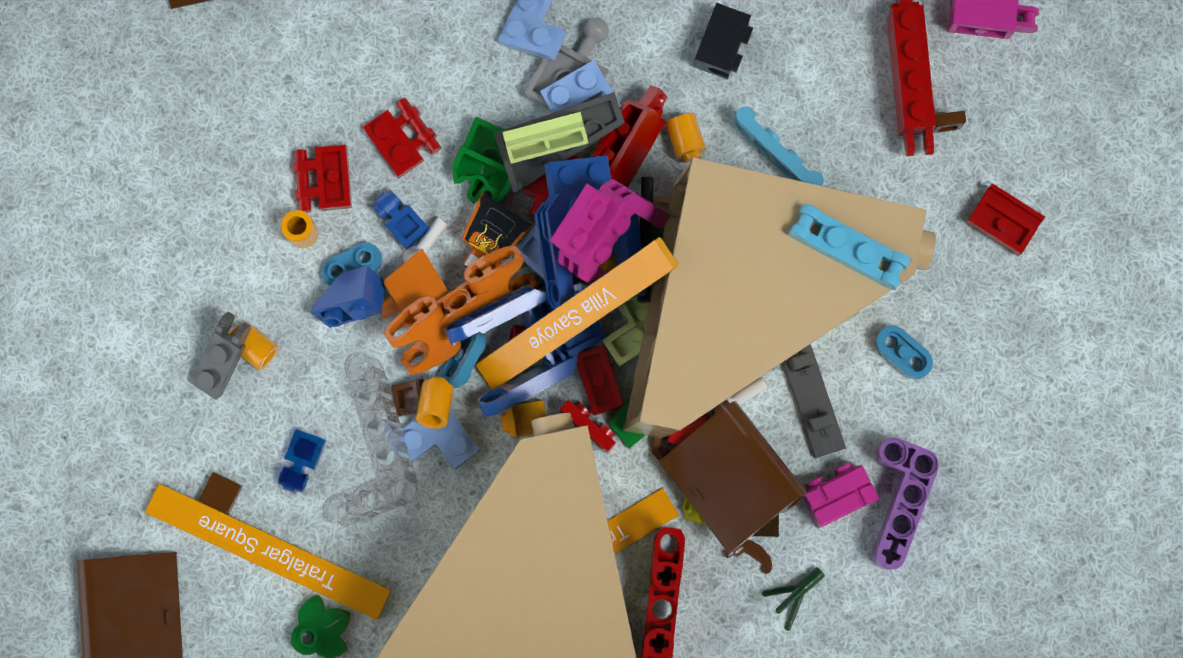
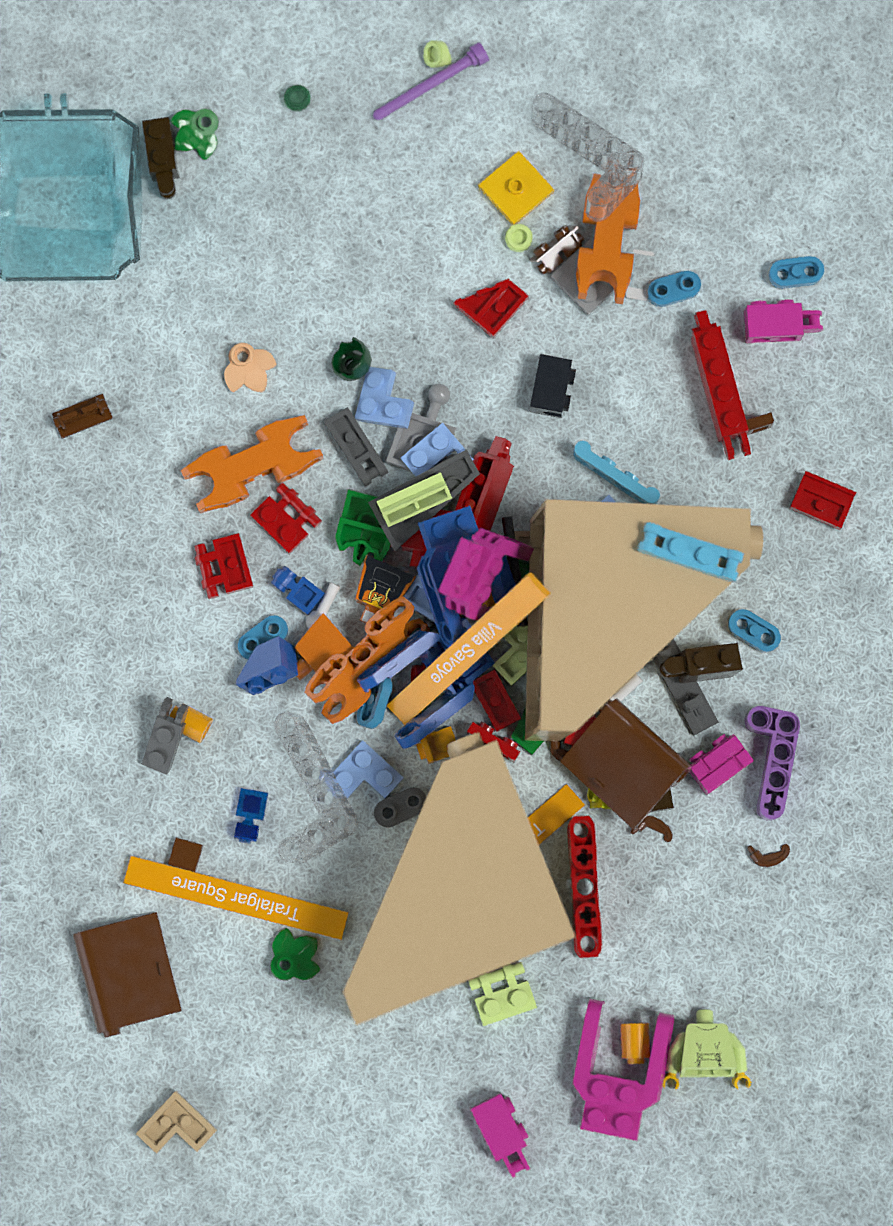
camera: 10 degrees left, 0 degrees up
(299, 229) = (213, 614): light orange brick -> none
(353, 76) = (234, 471): none -> orange piece
(407, 396) = (335, 743): reddish brown tile -> none
(434, 403) = (358, 744): light orange brick -> none
(470, 481) = (401, 809): none -> dark grey plate
(493, 71) = (355, 445): none -> dark grey plate
(686, 137) = (534, 476): light orange brick -> none
(798, 592) = (698, 854): dark green plant -> none
(840, 379) = (703, 663): none -> dark brown brick
(877, 614) = (770, 859): none -> reddish brown piece

